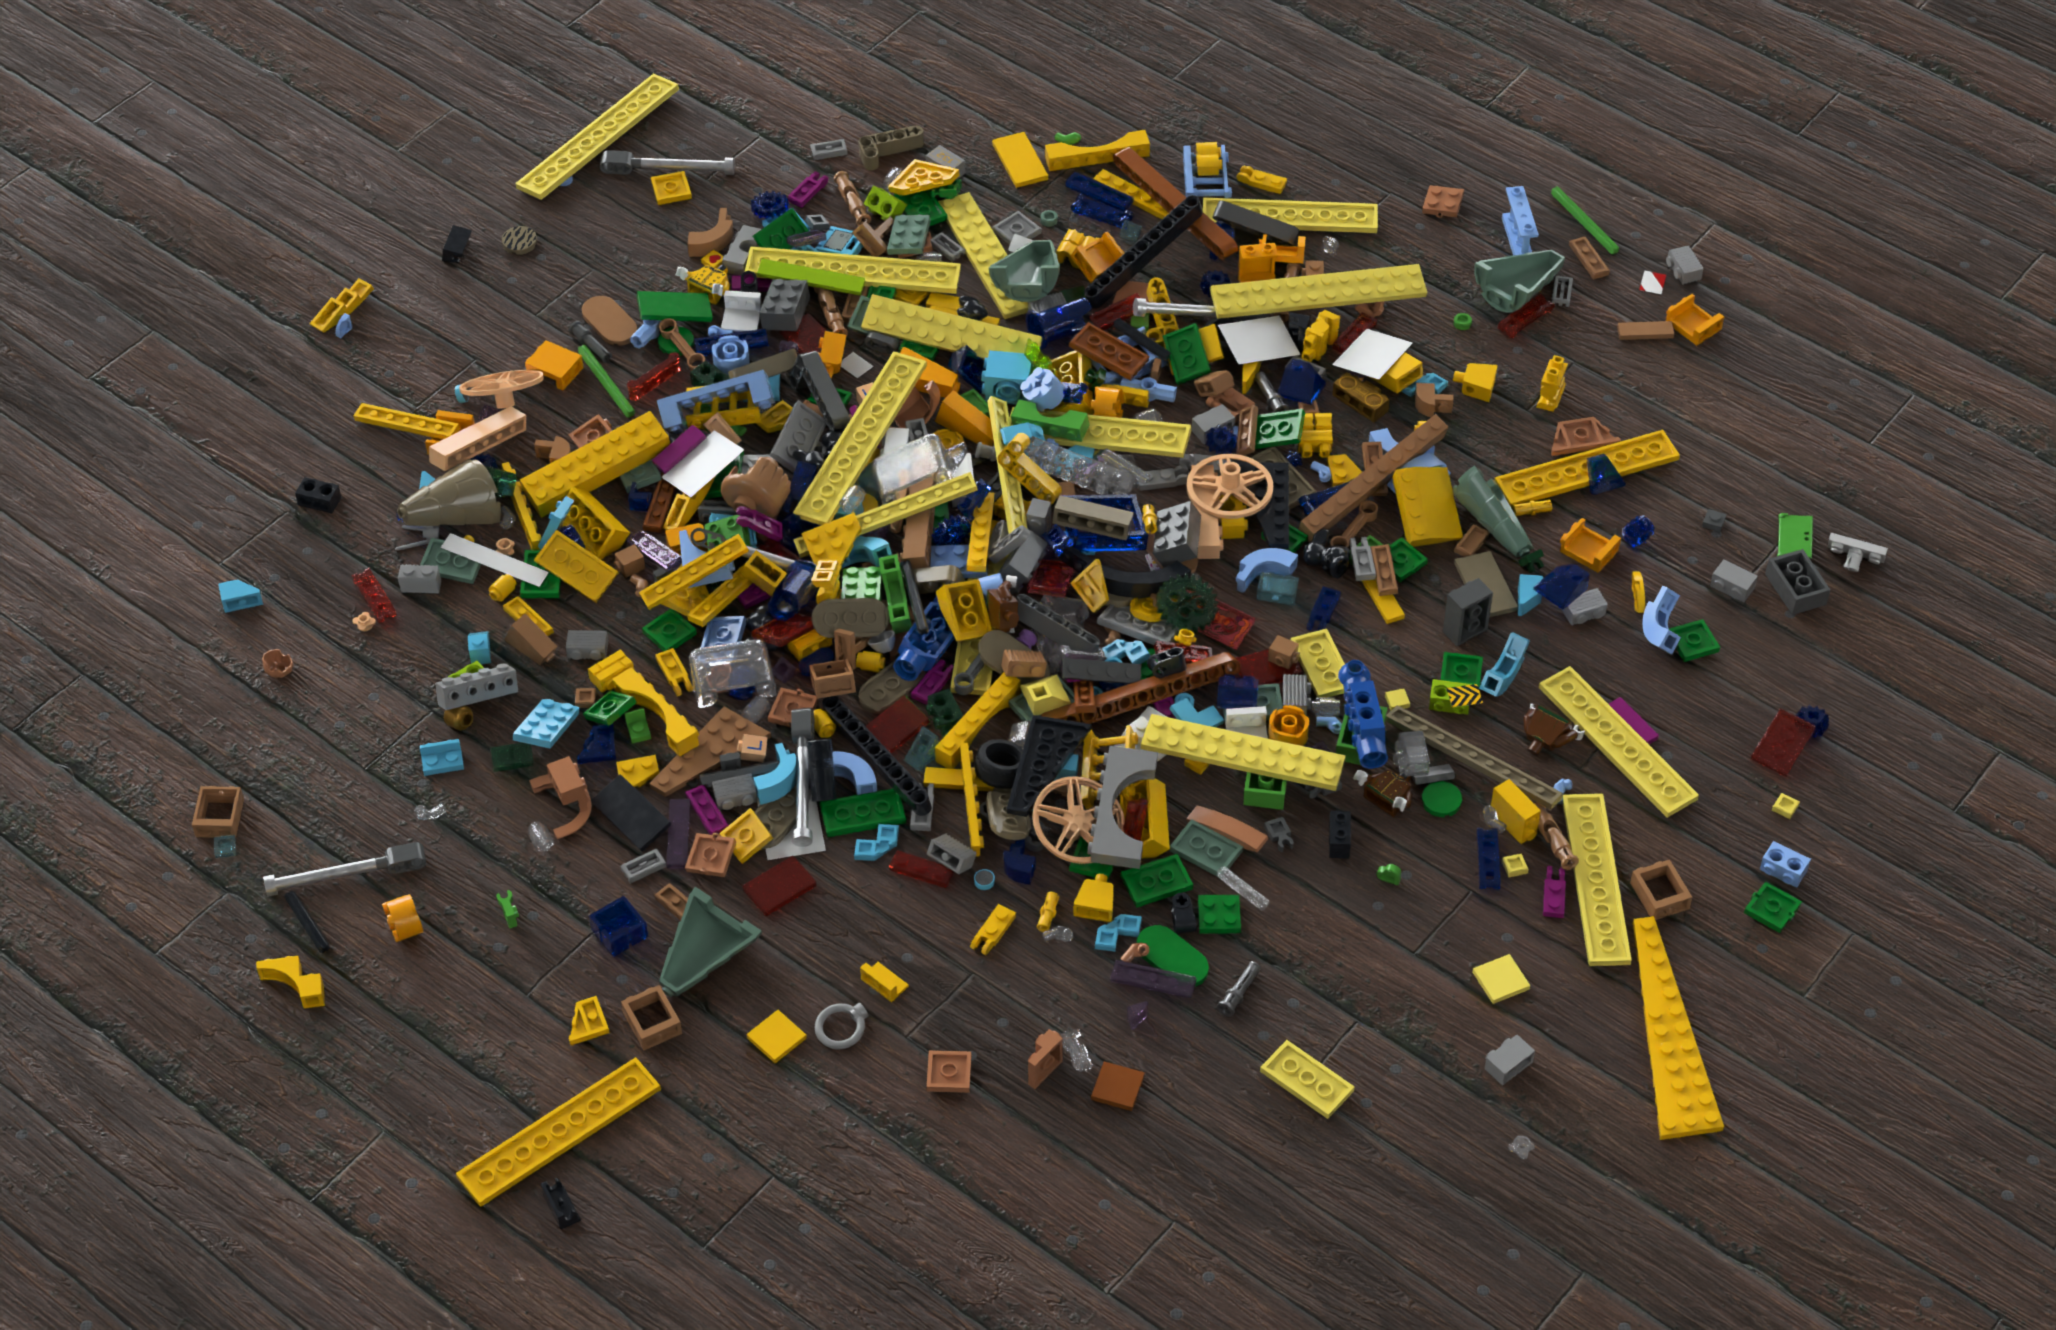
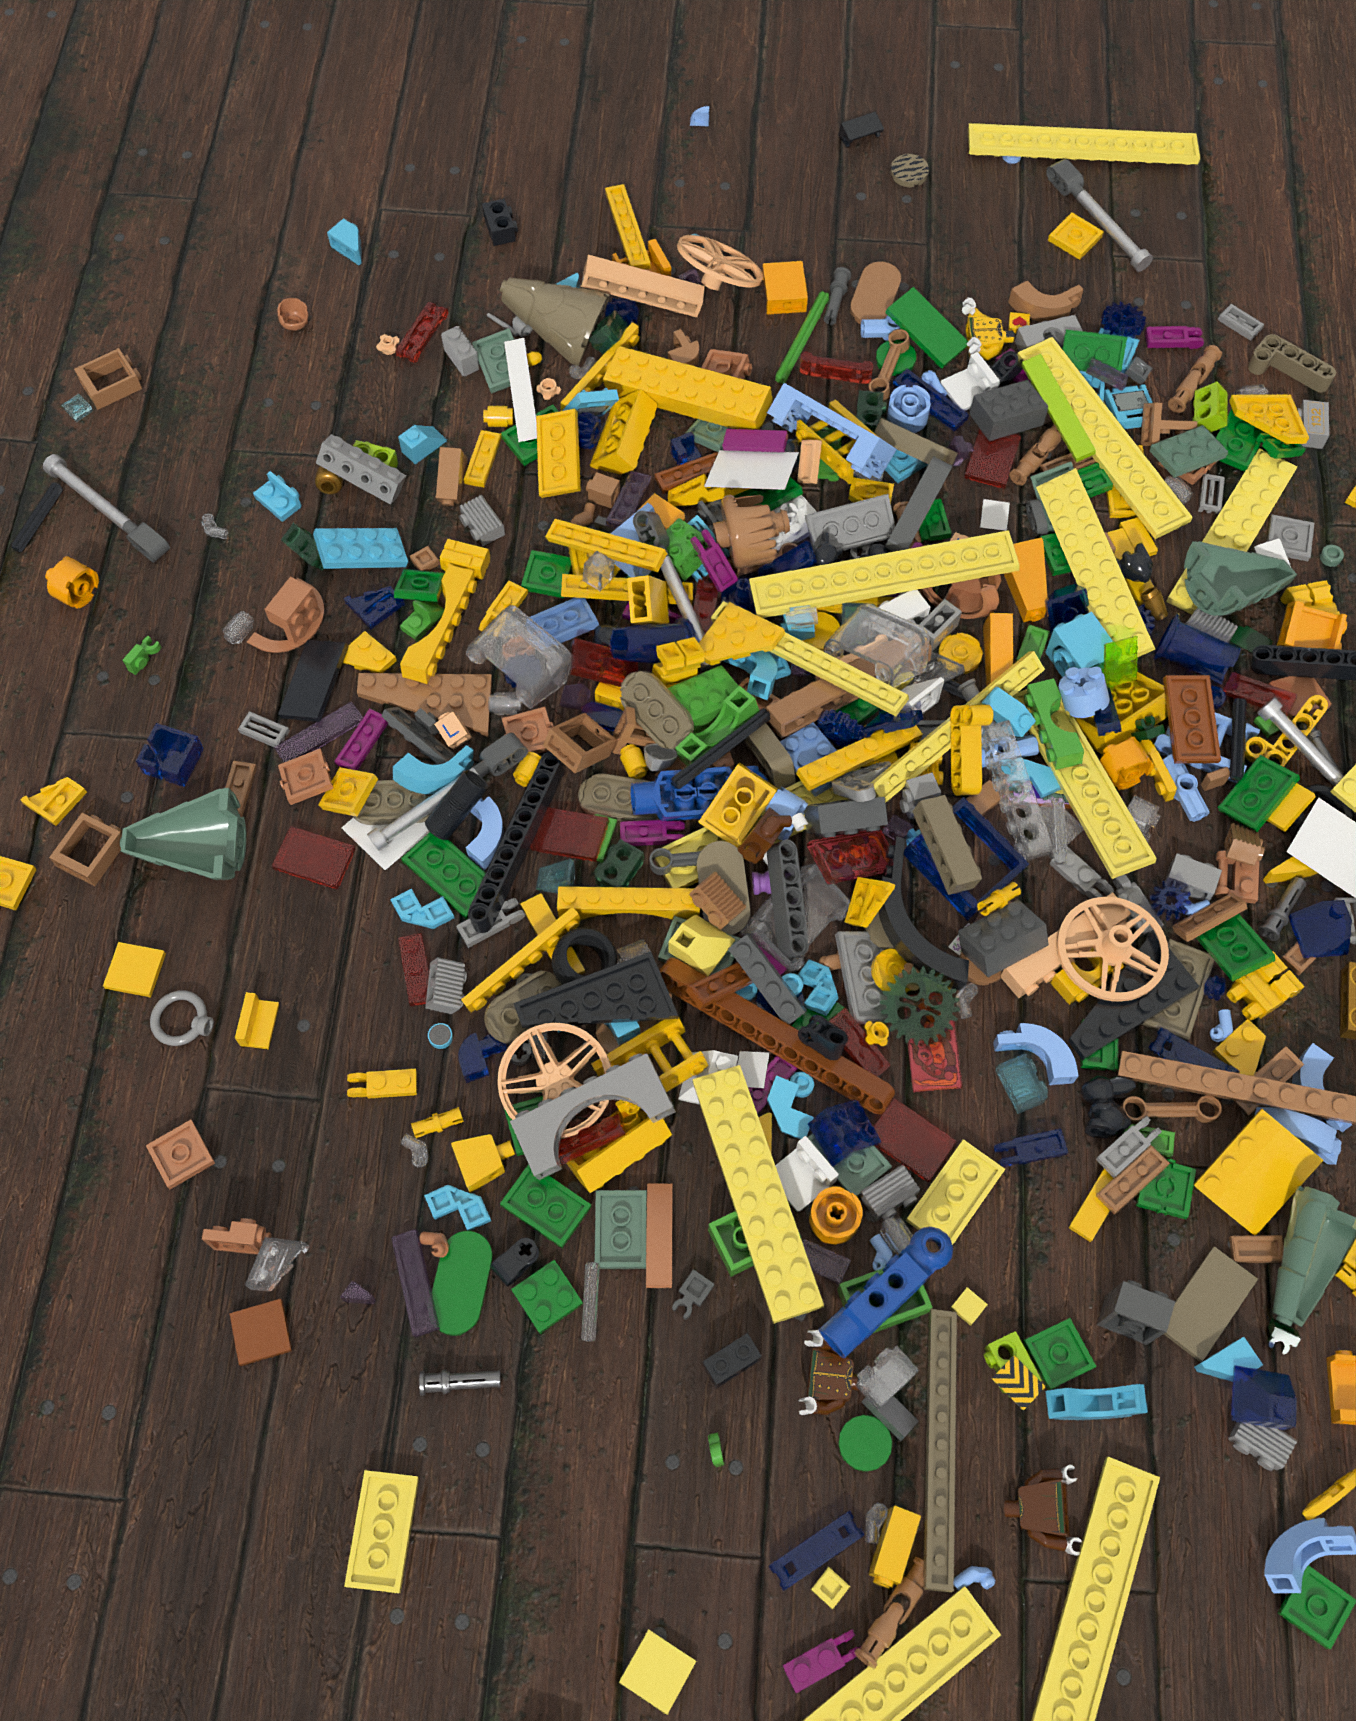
camera: 55 degrees right, 15 degrees up
(345, 303) = (722, 102): yellow slope -> none
(708, 589) = (598, 570): none -> clear brick
(734, 792) = (392, 745): light grey brick -> none
(832, 351) = (981, 486): light orange hinge -> none
(1003, 320) = (1154, 601): none -> pearl gold cone
(1057, 539) = (894, 830): clear blue plate -> none
(1283, 652) = (933, 1145): medium nougat brick -> none
(1634, 720) = (1139, 1603): magenta tile -> none

